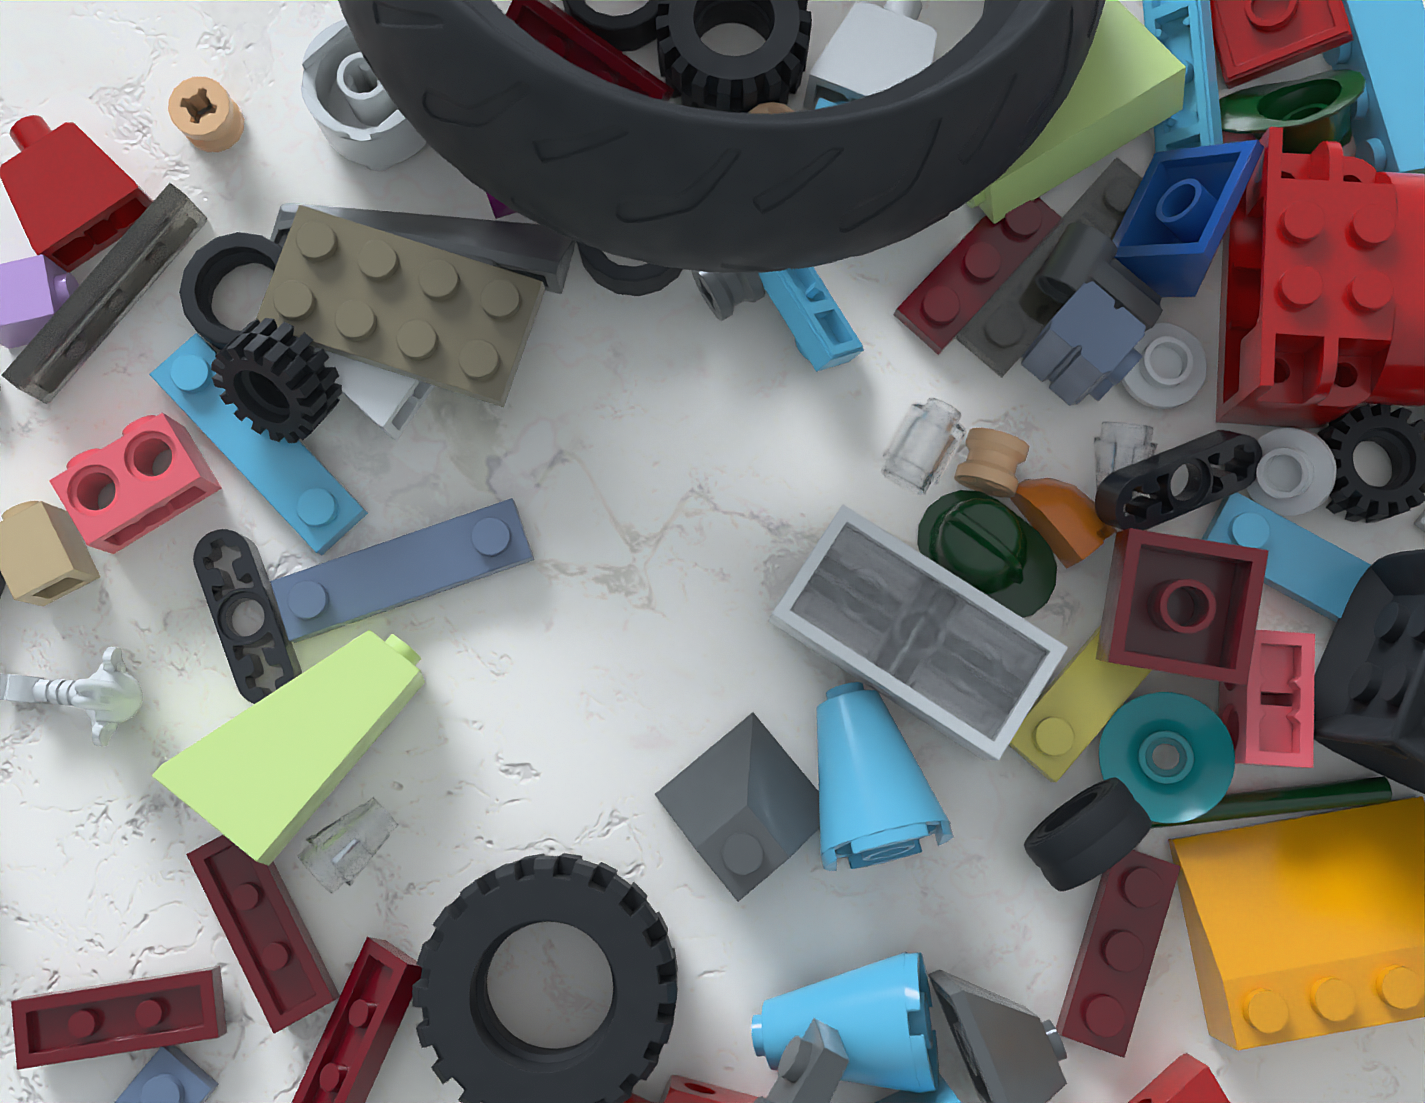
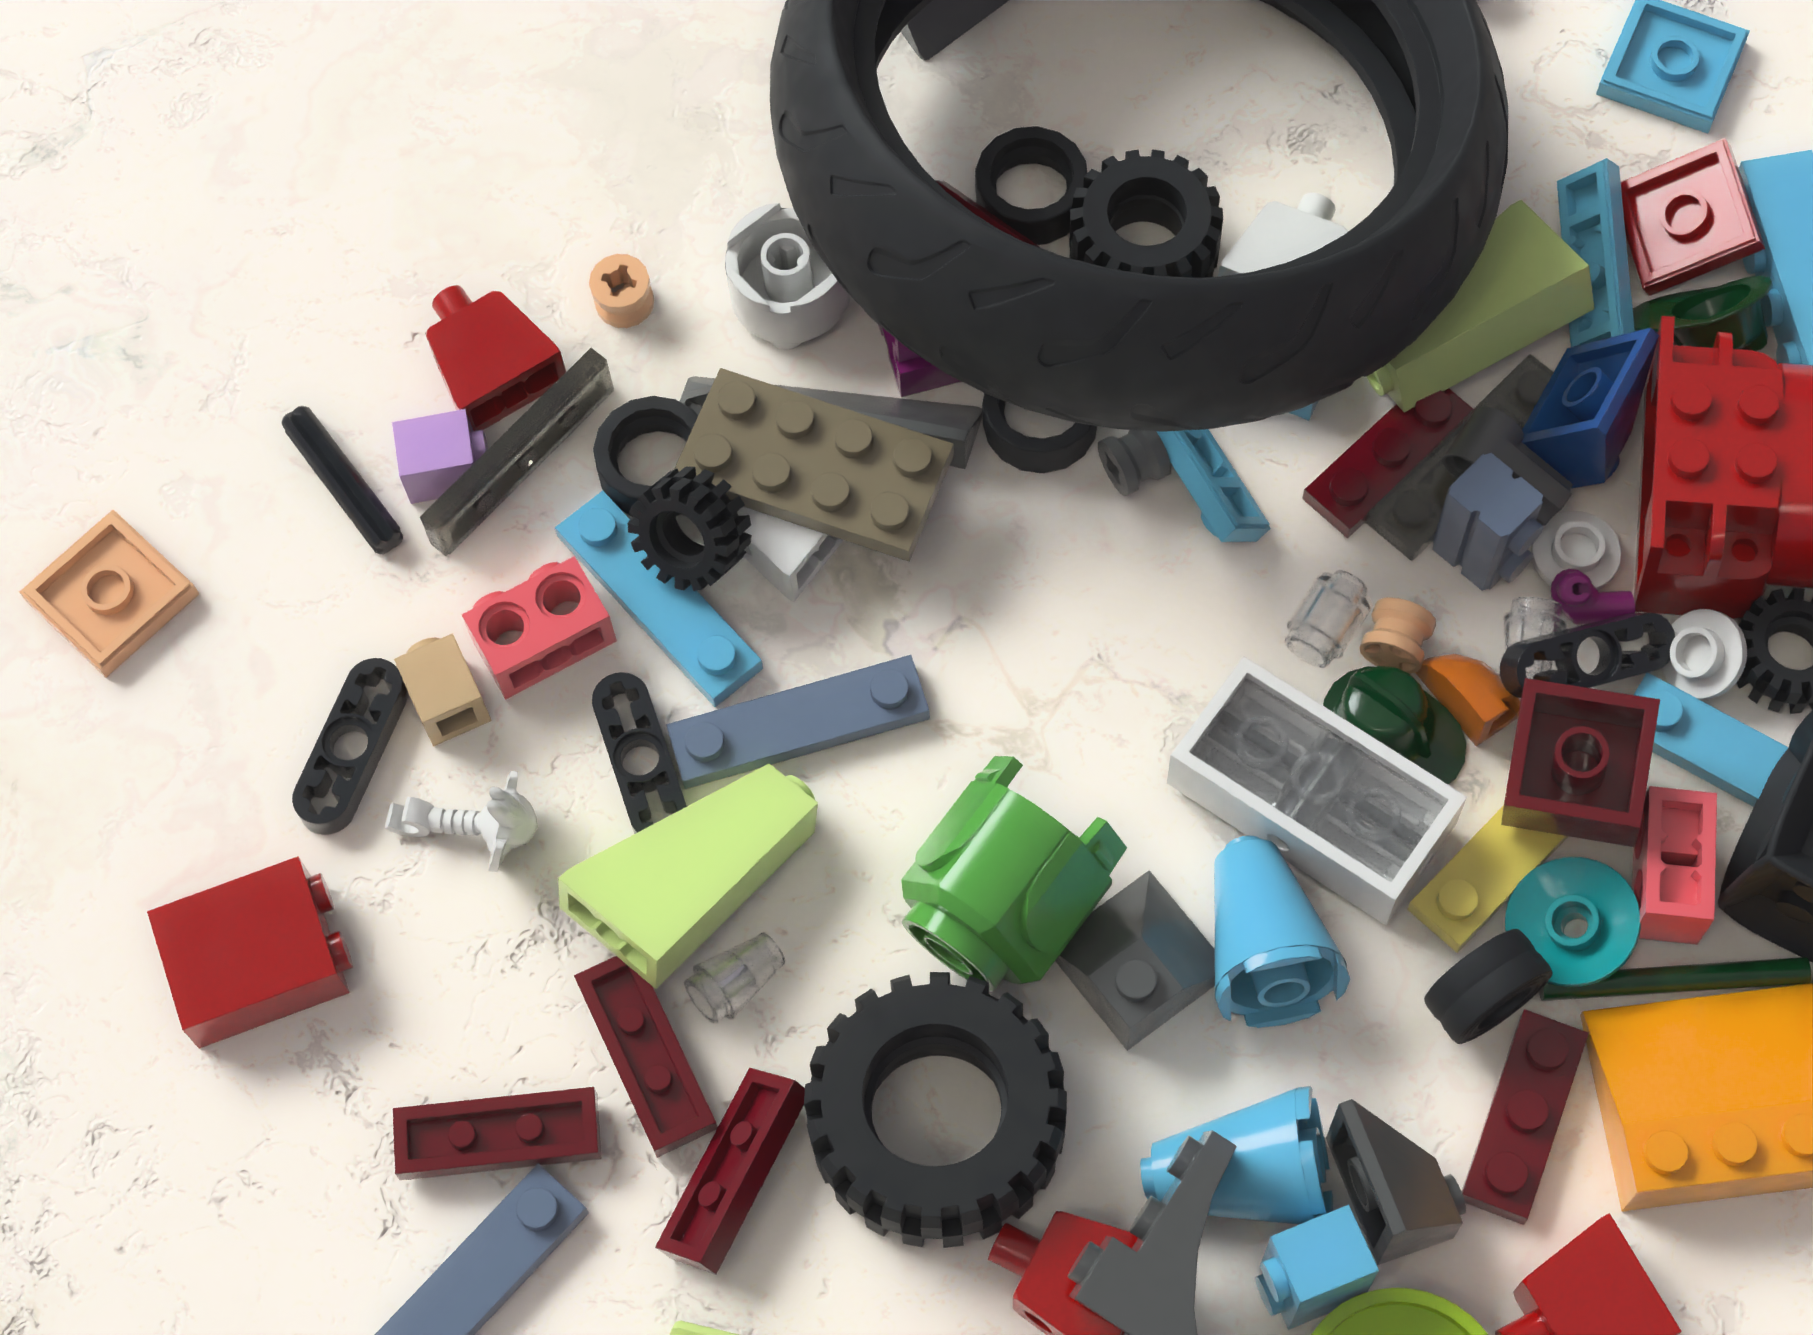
camera: 10 degrees right, 15 degrees down
(606, 755) = (1005, 882): none -> bright green piece
(1175, 421) = (1584, 603): none -> magenta arm

